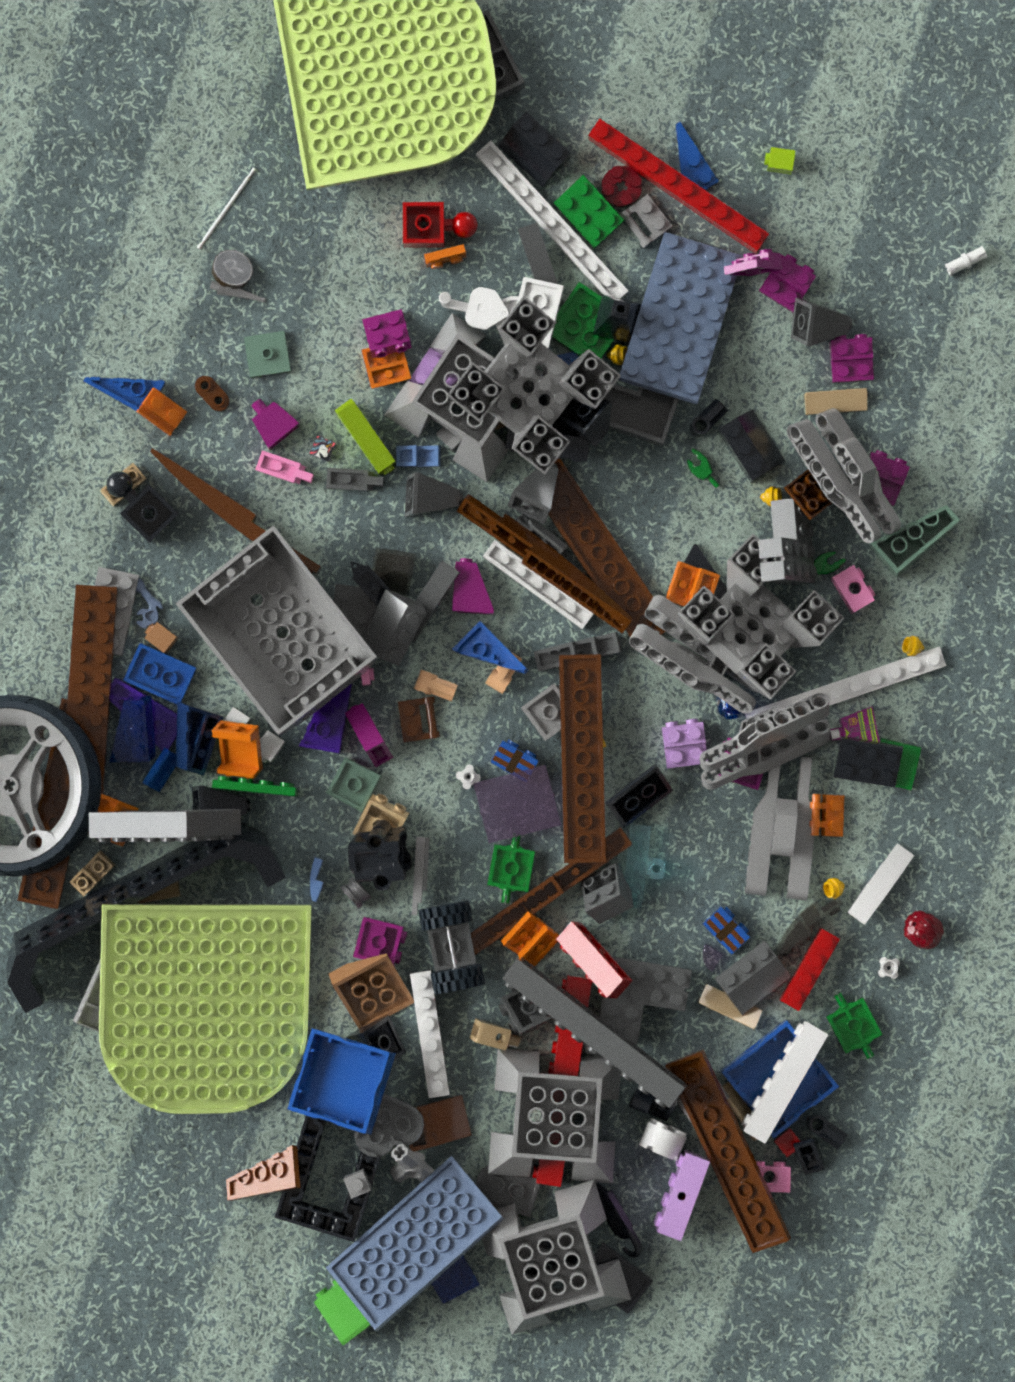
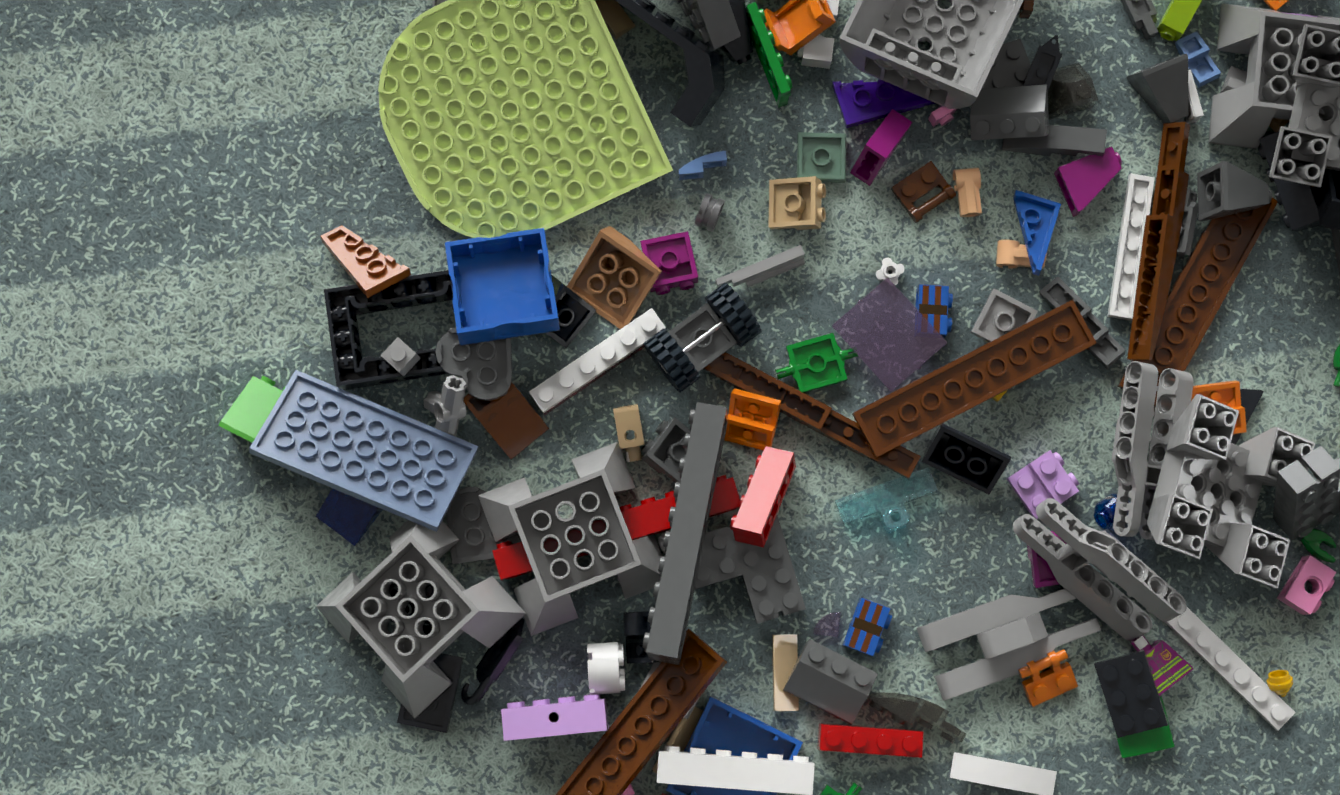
camera: 65 degrees right, 5 degrees down
(379, 855) = (762, 214): black piece -> none
(455, 482) = (1194, 107): none -> white tile
(606, 894) = (840, 477): dark grey slope -> none
(833, 888) = (971, 723): yellow plate -> none

